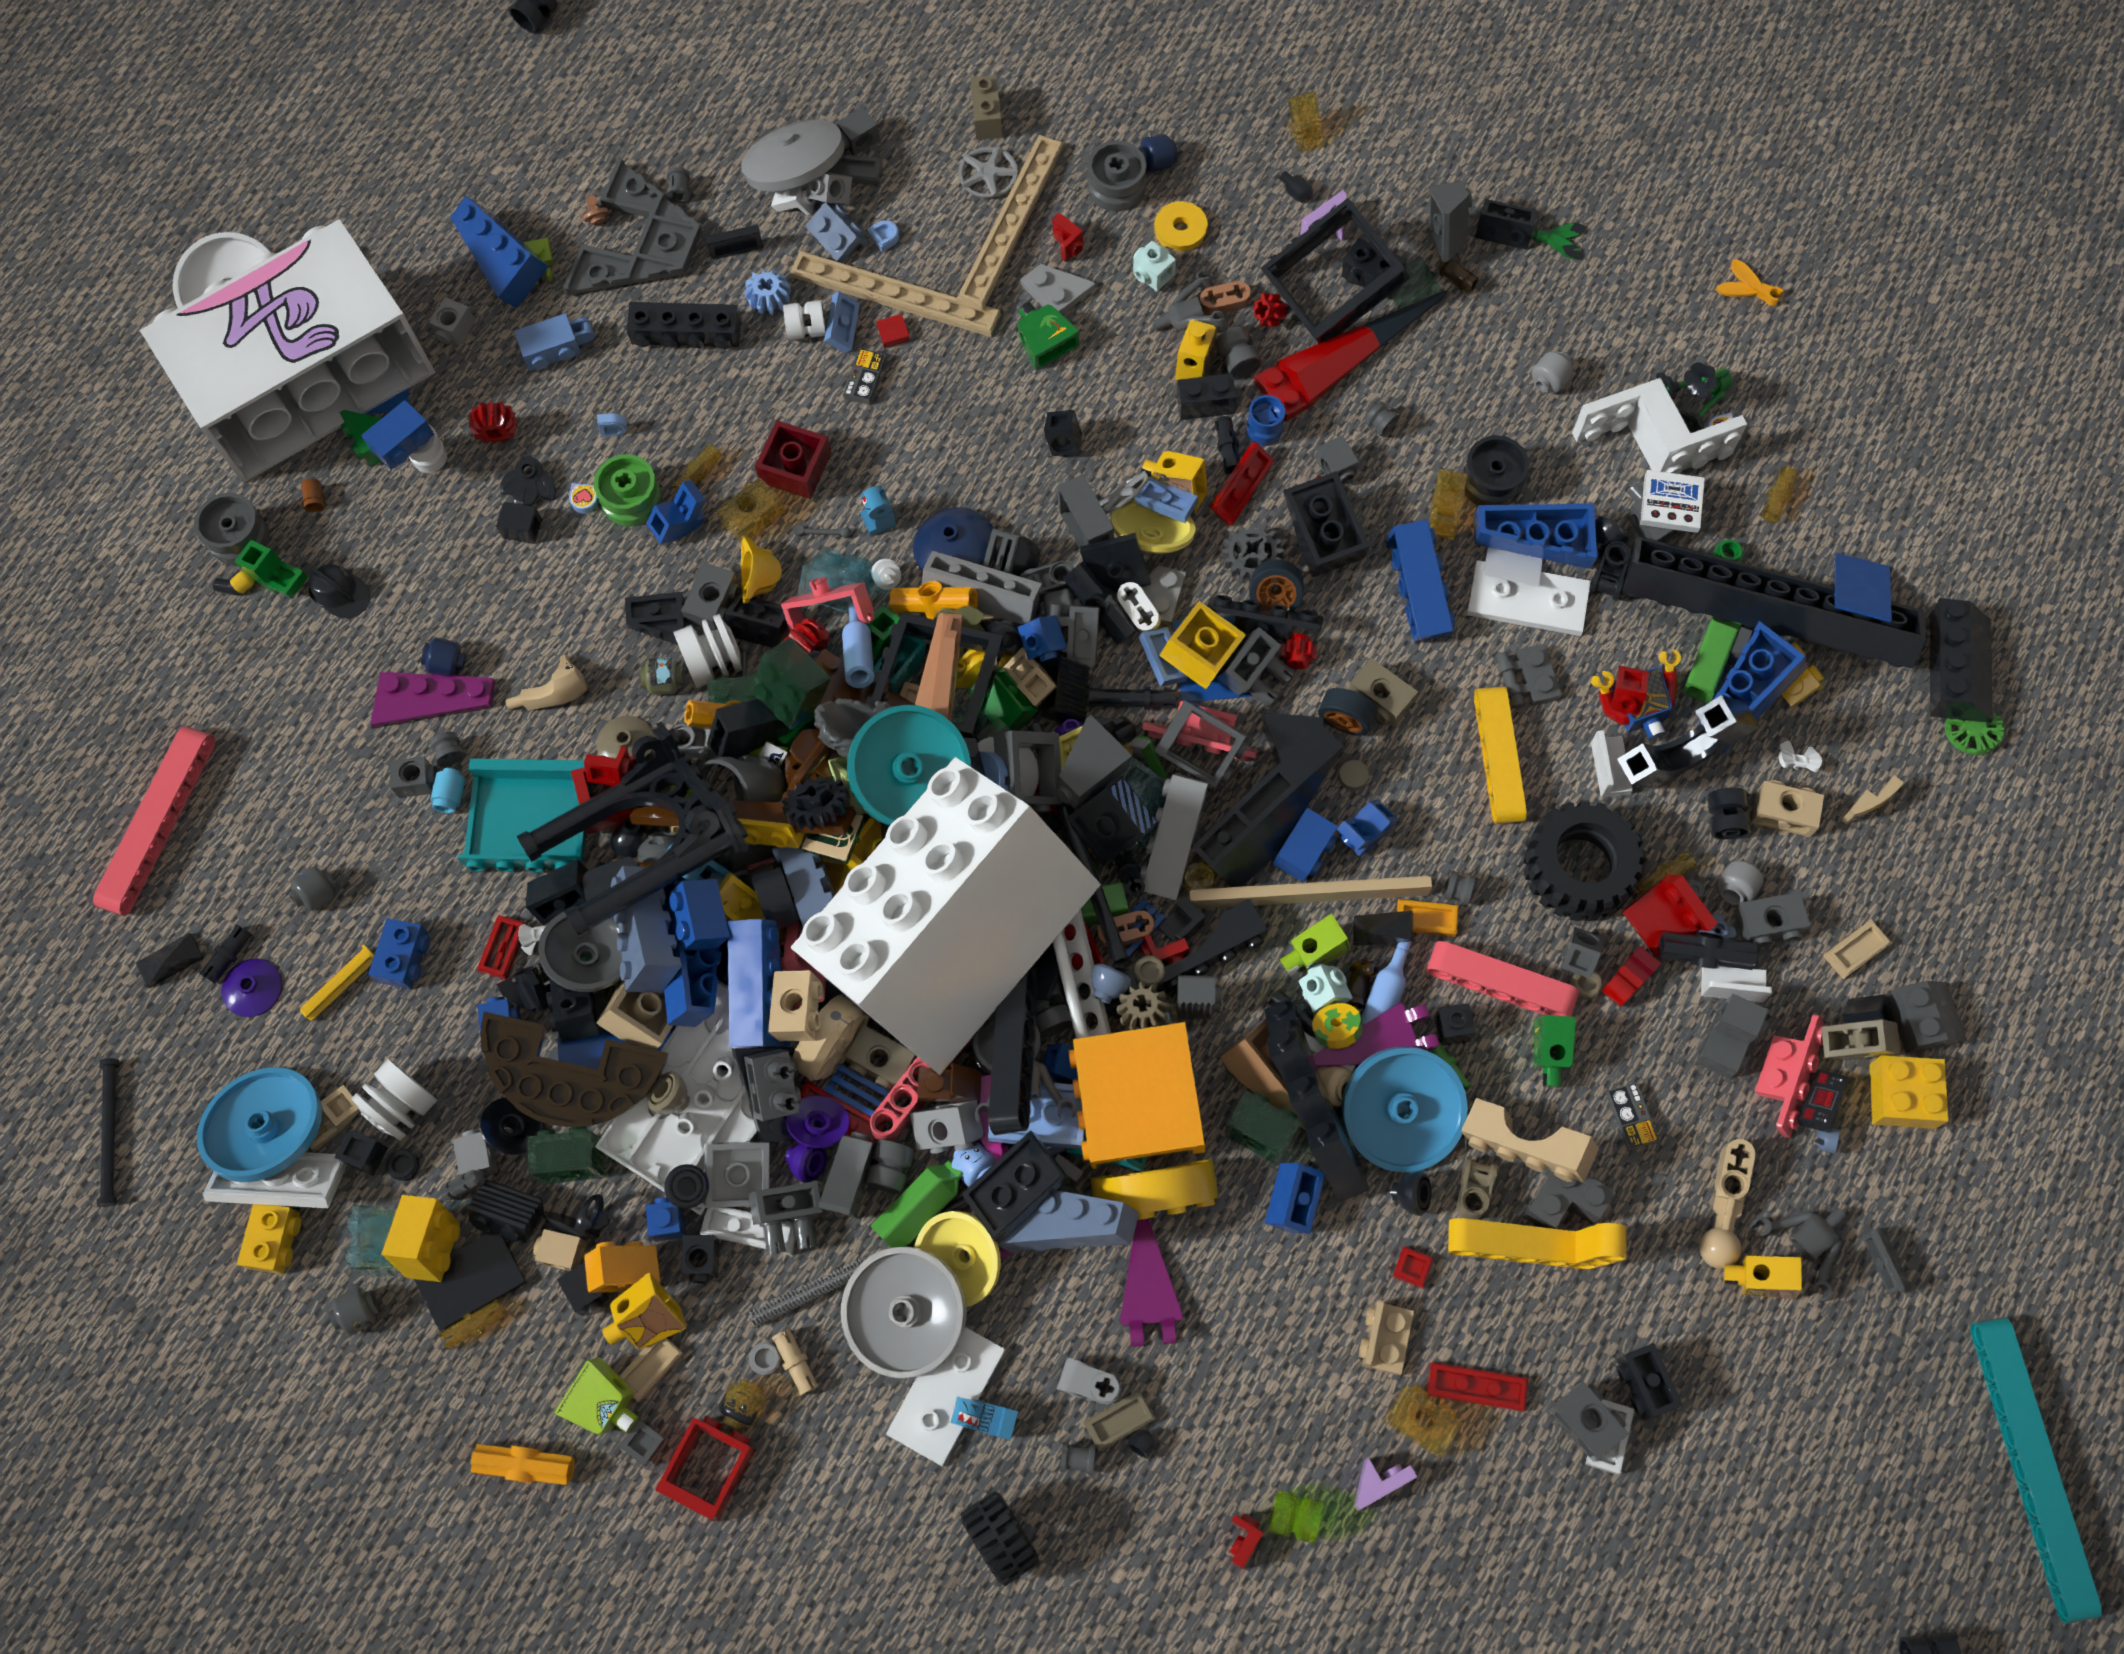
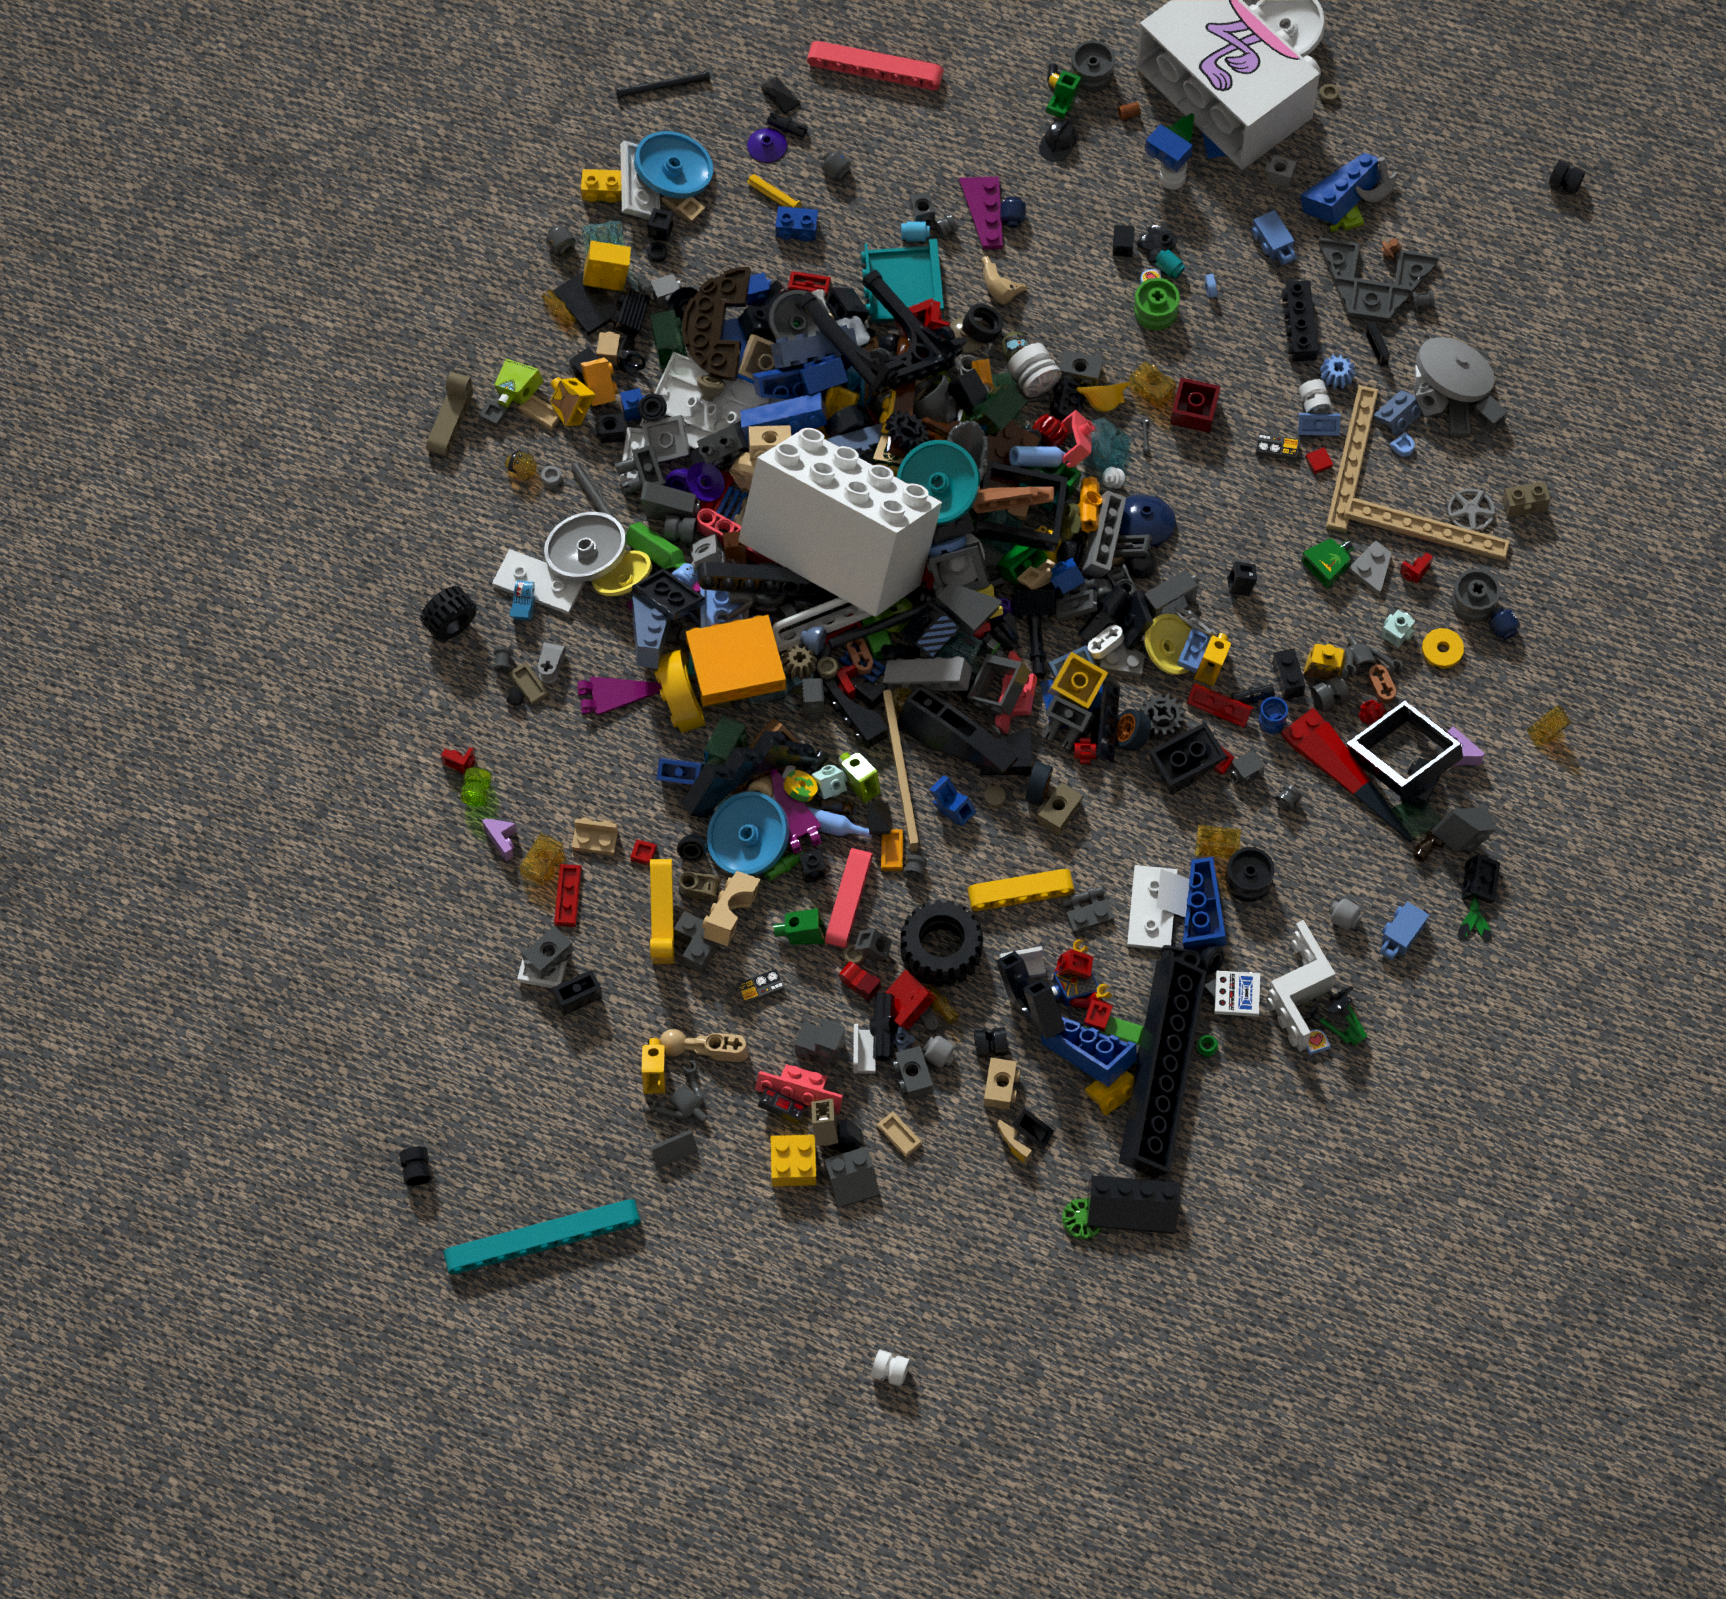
camera: 80 degrees right, 5 degrees down
(393, 1100) = (695, 236): white wheel -> none
(492, 201) = (1384, 189): none -> light grey piece
(492, 422) = (1198, 210): red gear -> none
(522, 1464) = (474, 348): light orange piece -> none
(567, 469) = (1170, 264): none -> teal brick
(621, 726) = (977, 332): none -> black tyre
(638, 1513) = (459, 394): none -> dark tan beam
(656, 615) = (1063, 336): black wing -> none
(679, 517) = (1140, 338): blue brick -> none
(690, 1500) = (484, 434): red window -> none
(707, 457) = (1170, 340): clear yellow pin -> none
(795, 1361) = (550, 492): tan pin -> none
(878, 511) = (1160, 463): dark azure leg -> none
(1297, 187) = (1491, 727): black cylinder -> none
(1305, 844) = (933, 762): blue brick -> none
(1421, 580) = (1151, 826): blue wedge -> none
(1576, 312) = (1403, 930): none -> medium blue brick
(1702, 669) = (1098, 1015): none -> red bracket
(1749, 285) = (1452, 1062): light orange piece -> none
(1779, 494) = (1262, 1081): clear yellow pin -> none
(1810, 760) = (1042, 1087): white piece -> none
(1828, 1141) = (754, 1112): sand blue hinge -> none
(1852, 775) = (1032, 1128): none -> black slope
(1862, 587) = (1184, 1131): blue window -> none

